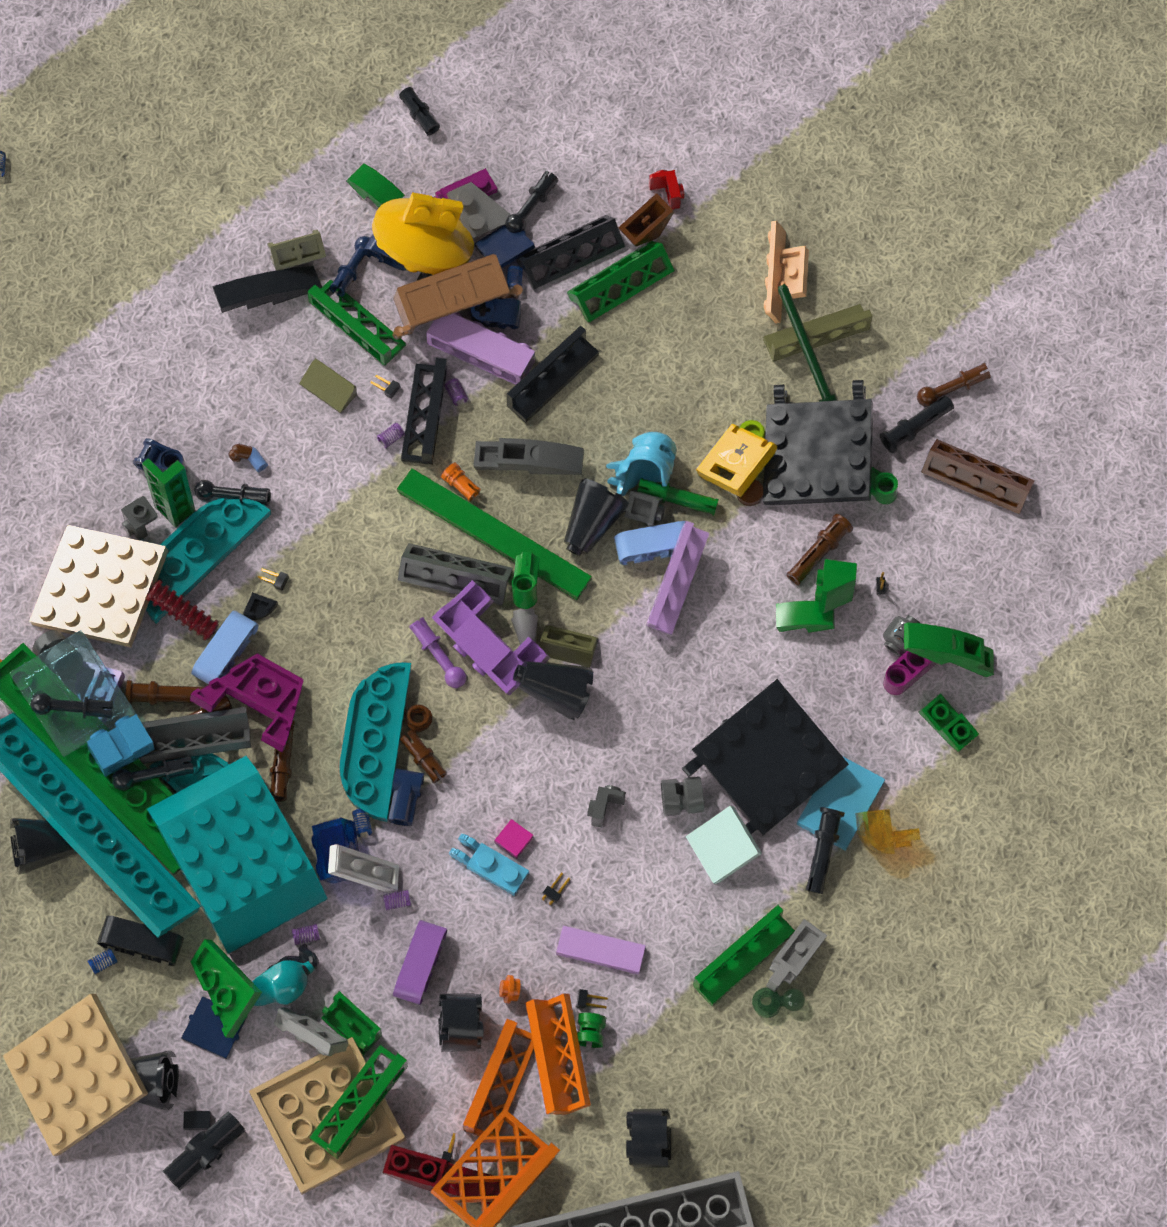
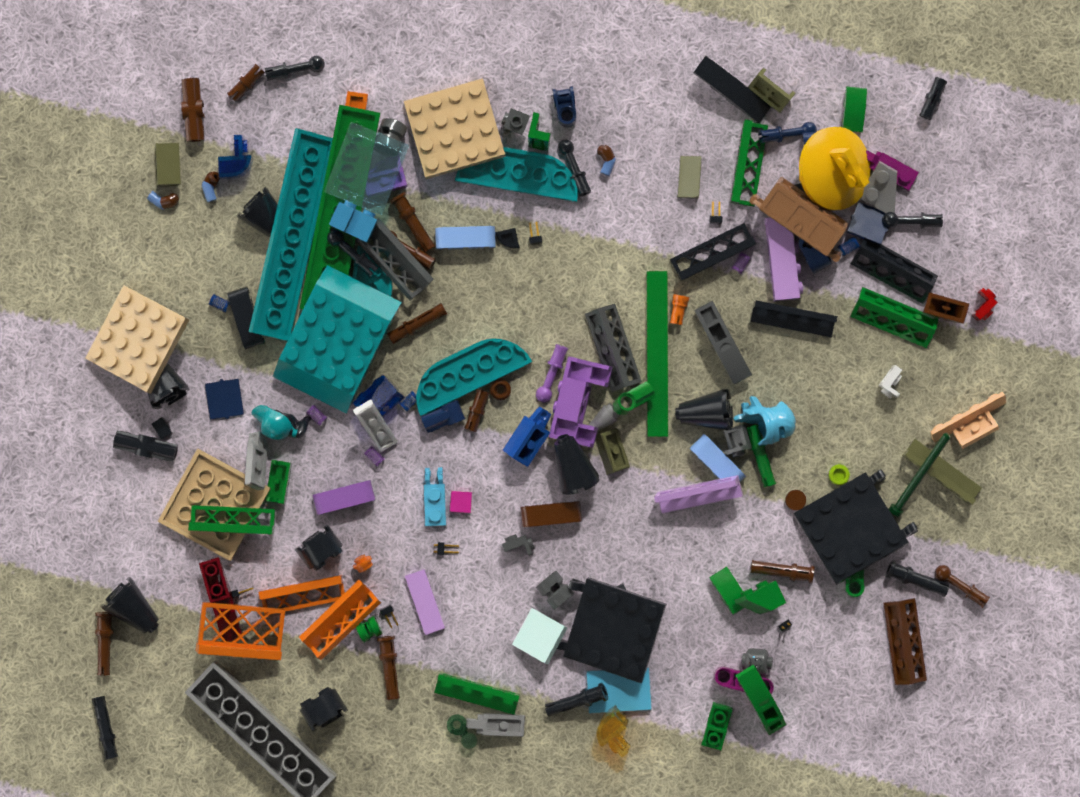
camera: 60 degrees right, 20 degrees up
(43, 704) = (345, 157): black pin -> none
(182, 610) = (470, 194): dark red piece -> none
(226, 984) = (250, 394): green wing -> none
(262, 687) = (454, 281): magenta wing -> none
(396, 426) = (674, 242): medium lavender piece -> none
(492, 717) = (528, 437): none -> blue hinge
(592, 748) = (551, 514): none -> reddish brown beam
(637, 1029) = (388, 657): none -> reddish brown pin
(685, 323) = (891, 378): none -> white bracket
(740, 454) = (814, 478): yellow container -> none

